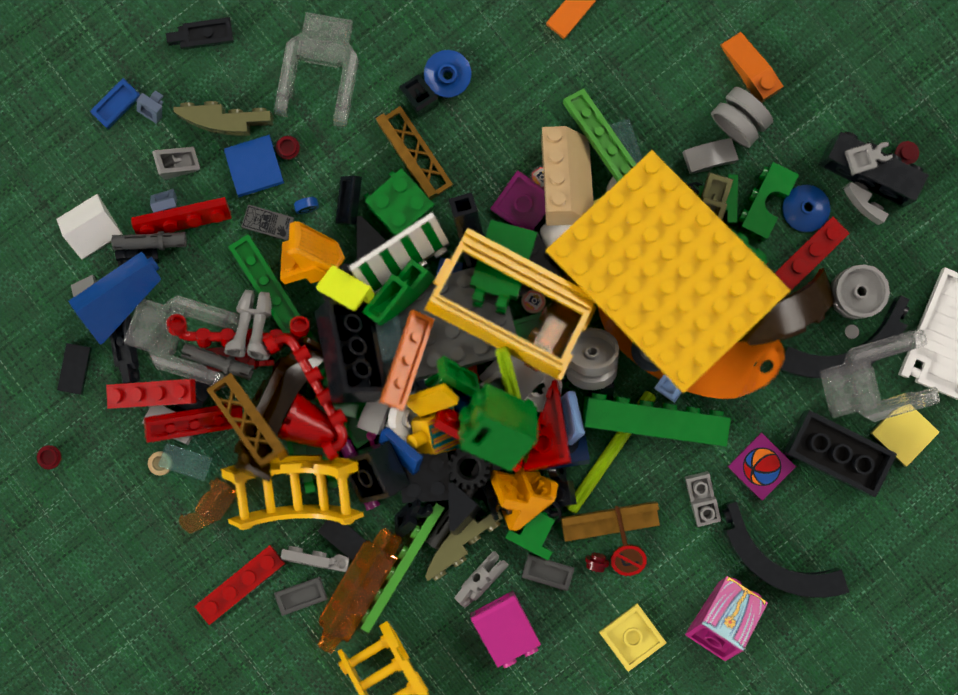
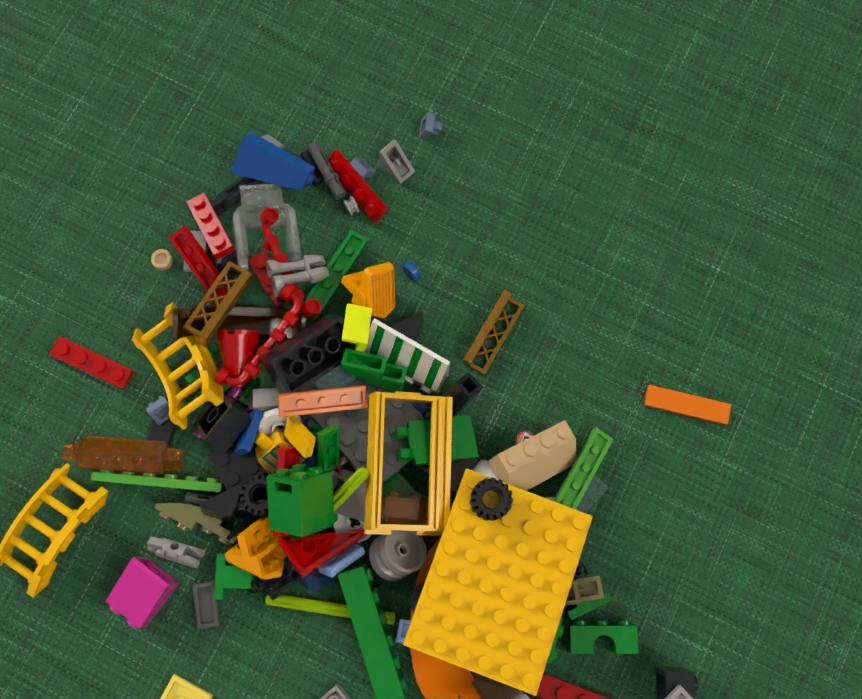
camera: 65 degrees right, 10 degrees down
(49, 457) = (130, 178): dark red plate -> none
(74, 369) = (206, 165): black tile -> none
(88, 227) = (317, 125): white slope -> none
(115, 103) = (418, 102): blue tile -> none
(184, 462) = (169, 276): clear light blue tile -> none
(200, 234) = (351, 205): none -> light grey bush
(202, 34) = (502, 137): black hinge -> none
(210, 506) = (141, 310): clear orange animal -> none
(213, 118) = (444, 179): olive slope -> none
(223, 363) = (258, 268): dark grey pin -> none
(253, 165) = (422, 219): blue slope -> none
(267, 222) = (384, 247): dark grey tile -> none
(287, 147) = (449, 237): dark red plate -> none
(301, 596) = (102, 414): dark grey tile -> none
(317, 559) = (135, 412): light grey hinge -> none
(323, 42) = (541, 224): clear plate -> none
(329, 532) = (159, 410): none -> sand blue tile
(348, 200) = (431, 300): black tile -> none
(399, 203) = (447, 336): green container -> none
(408, 516) = (201, 467): black plate -> none
(419, 95) = (539, 315): black slope -> none
(444, 62) = (568, 318): blue dish -> none
(521, 202) = (496, 433): magenta tile -> none
(533, 301) = (421, 483): tile -> none
(595, 226) = (504, 495): none -> black tyre
(596, 562) = (231, 642): dark red plate -> none
(605, 521) = (272, 636): pearl gold fence -> none
(629, 558) = (246, 667): piece -> none
(710, 155) = (614, 569): light grey slope -> none
(742, 117) = (660, 580): light grey wheel -> none
(752, 67) = (703, 569): orange slope -> none
(797, 216) = (602, 675): blue dish -> none

